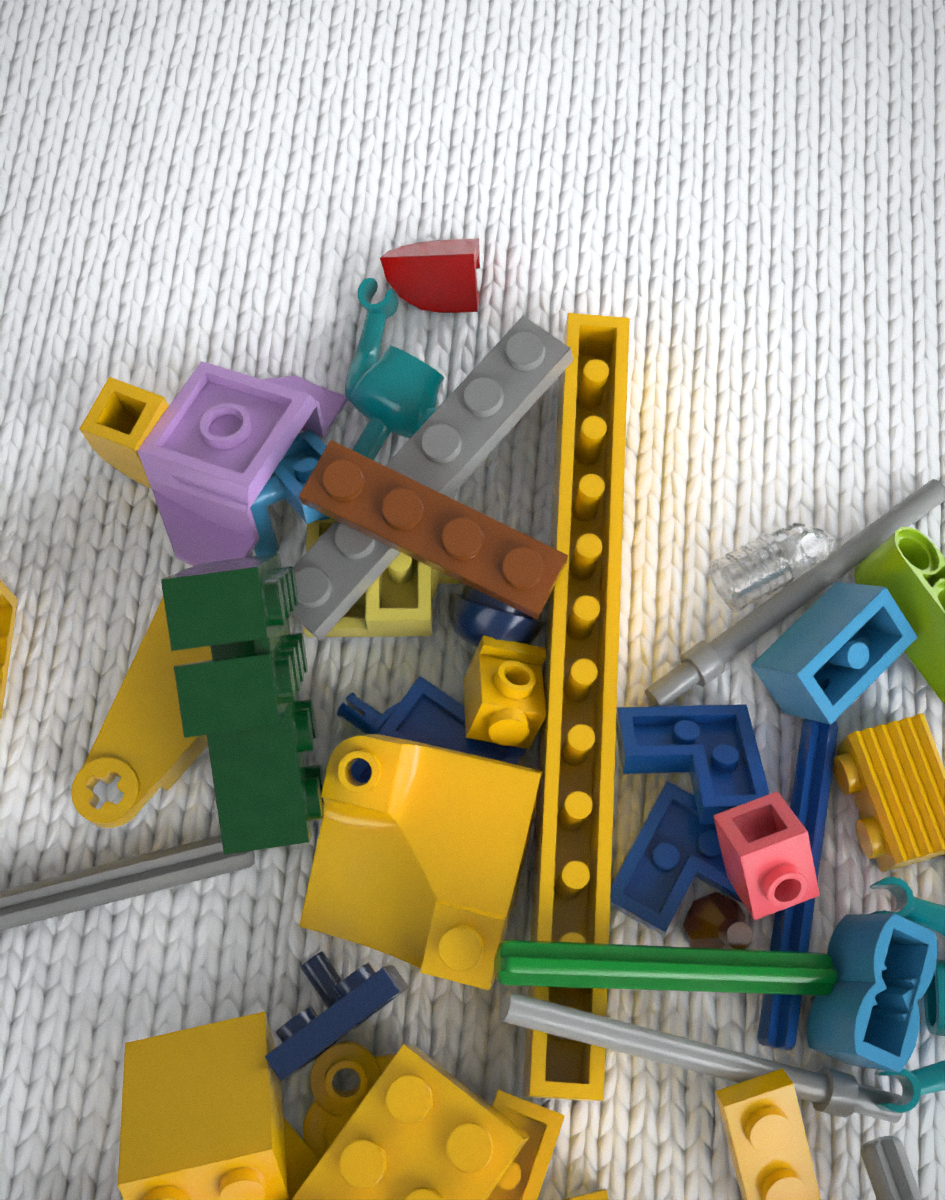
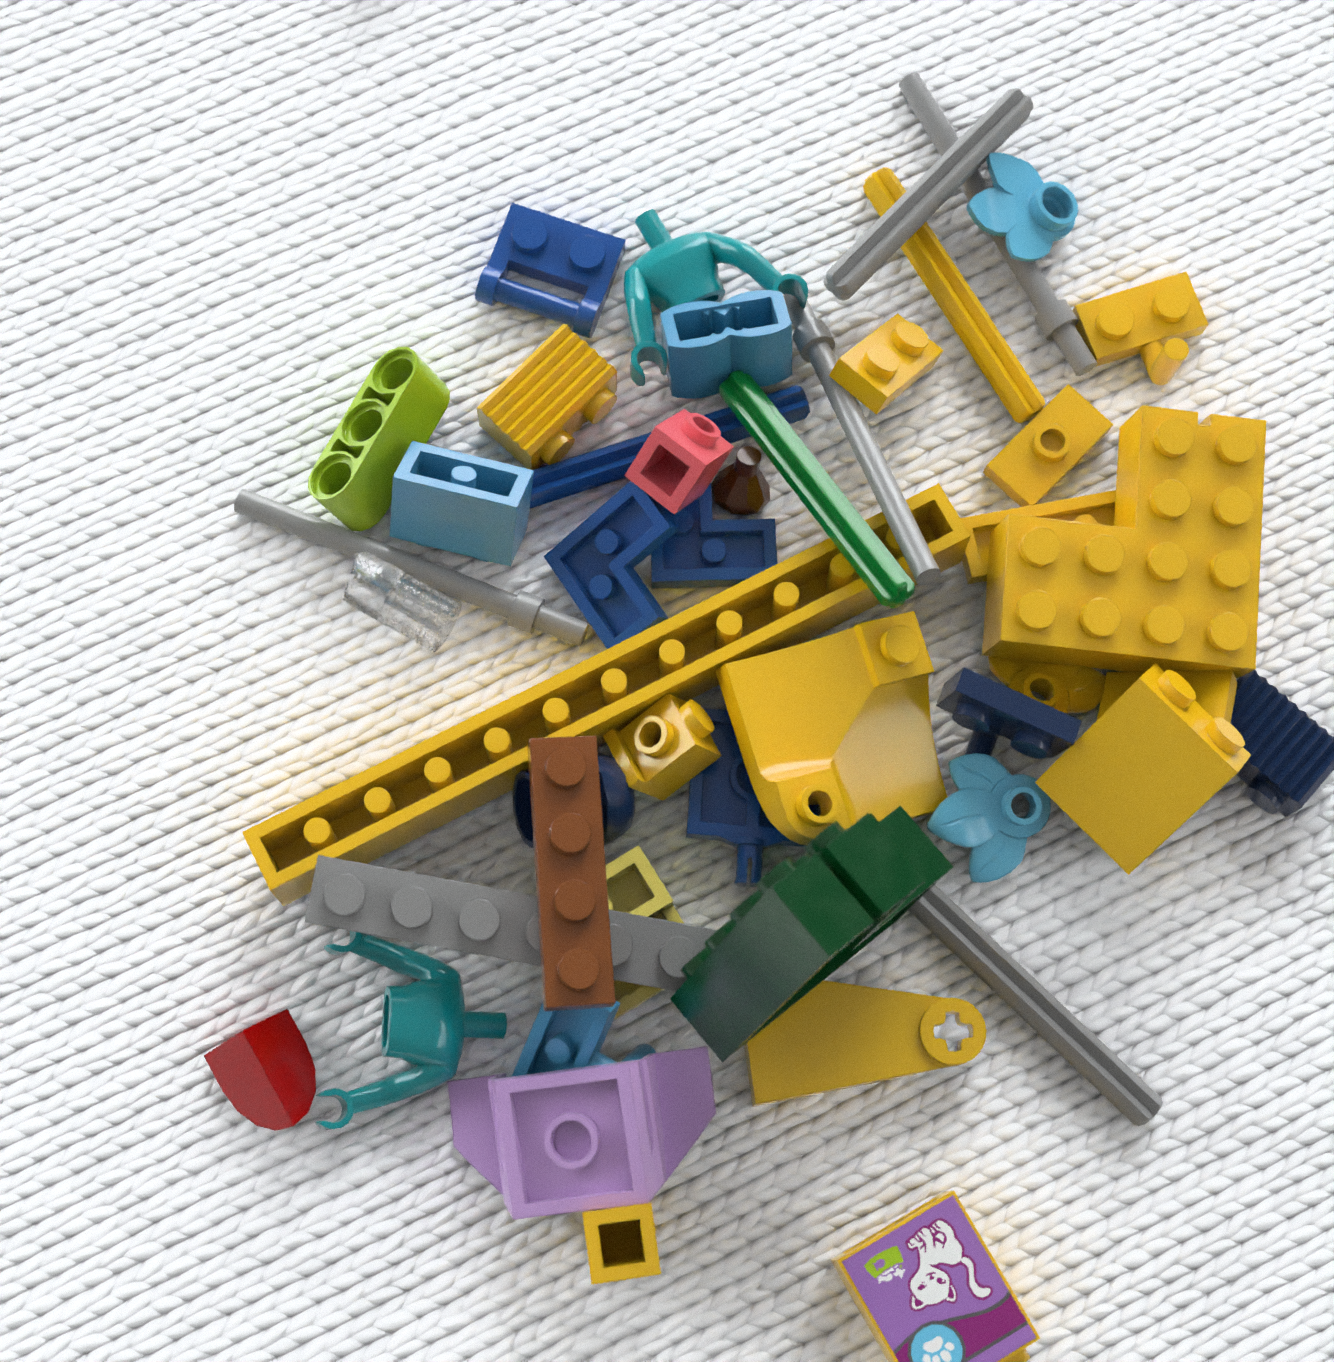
camera: 130 degrees left, 5 degrees up
(269, 946) = (983, 817): none -> medium azure plate

